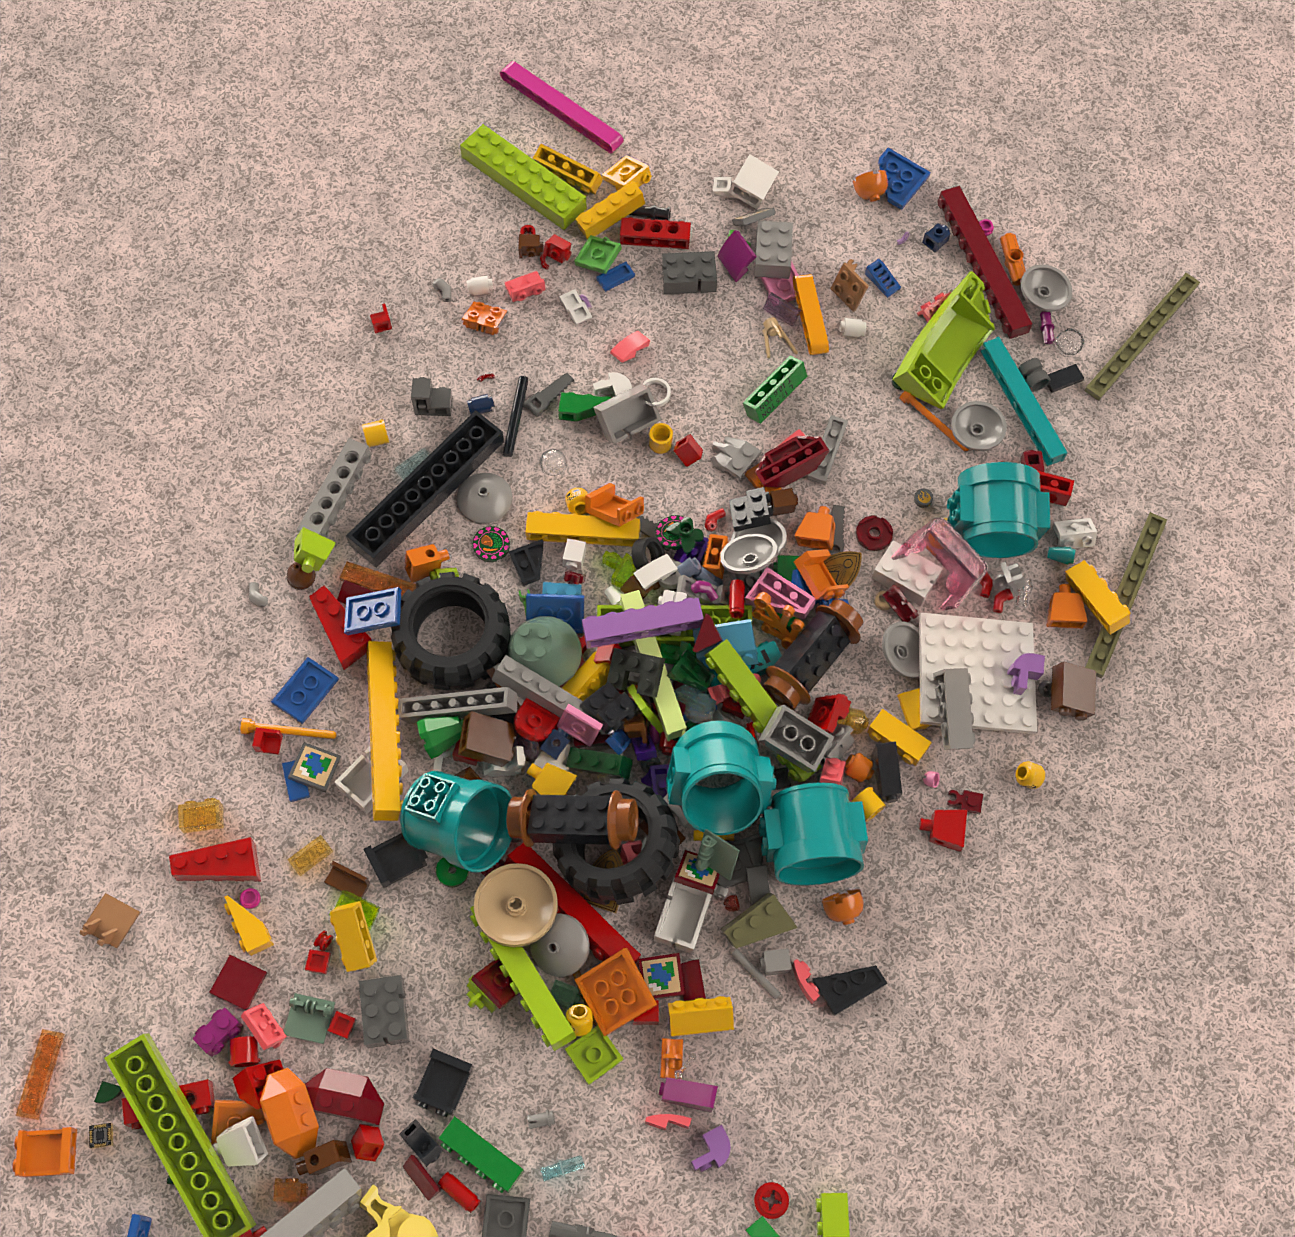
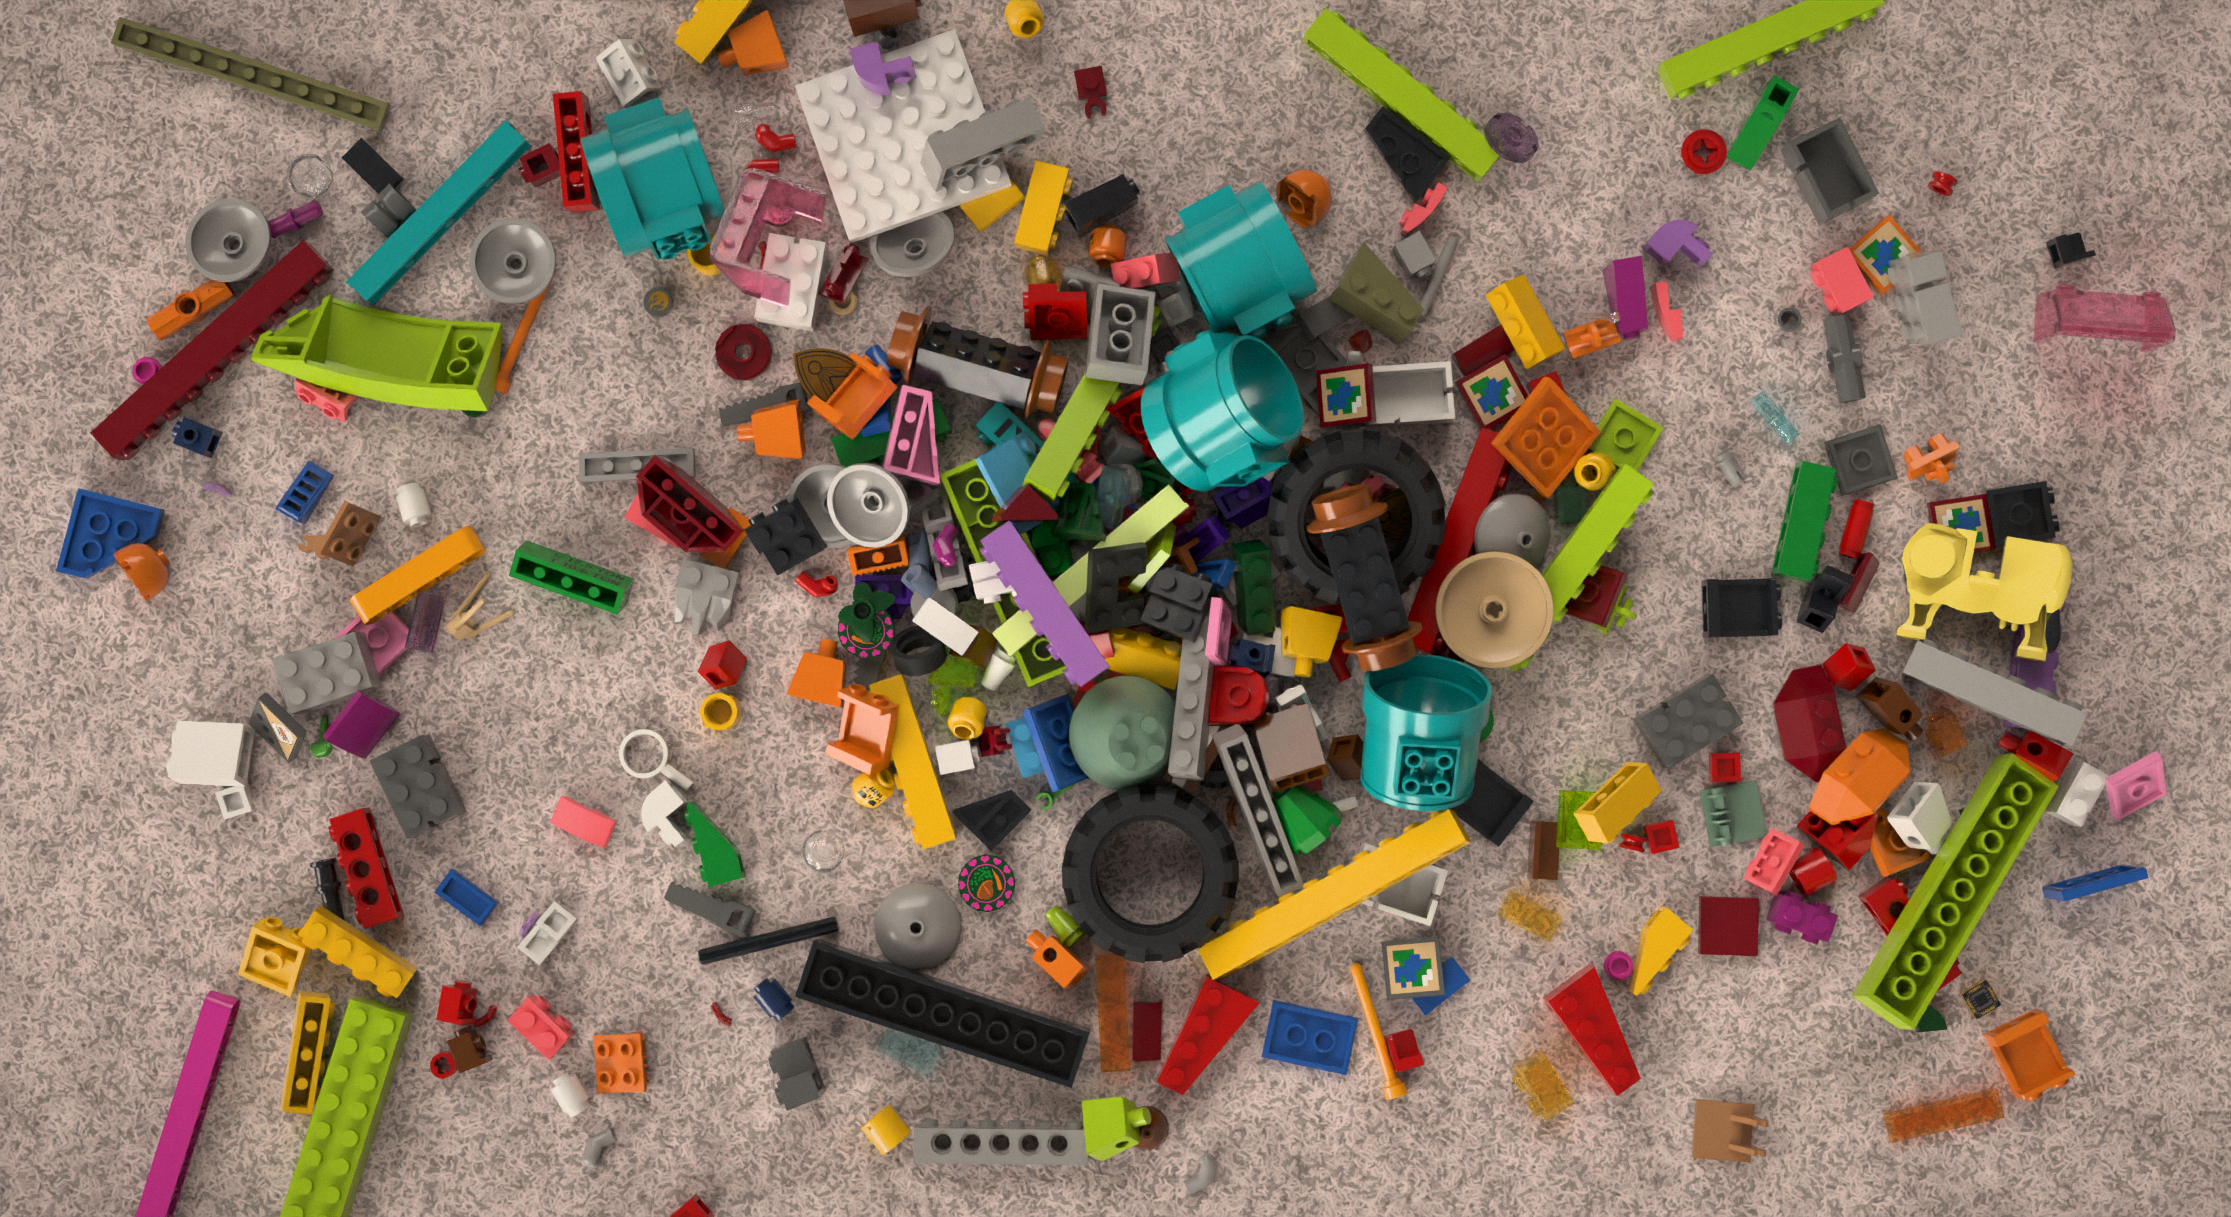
camera: 105 degrees left, 20 degrees up
(372, 611) = (1175, 989): tile -> none
(594, 568) = (967, 718): none -> yellow head
(598, 254) = (441, 938): bright green plate -> none
(627, 412) = (696, 772): light grey piece -> none
(630, 1207) = (1784, 316): none -> dark grey hinge
(658, 498) = (820, 676): none -> orange torso
(717, 855) = (1320, 376): sand green hinge -> none
(737, 598) = (941, 496): red piece -> none
(762, 603) = (950, 442): orange plant -> none
(783, 501) = (751, 495): reddish brown brick -> none
(832, 1061) = (1511, 138): none -> tile
(871, 803) = (1155, 214): yellow piece -> none
(889, 1001) = (1401, 93): none -> lime brick
(932, 779) = (1081, 144): bright pink hinge -> none
(946, 828) = (1143, 102): red torso -> none
(1012, 578) = (751, 129): light grey hips -> none
(1062, 554) = (670, 78): teal cone -> none

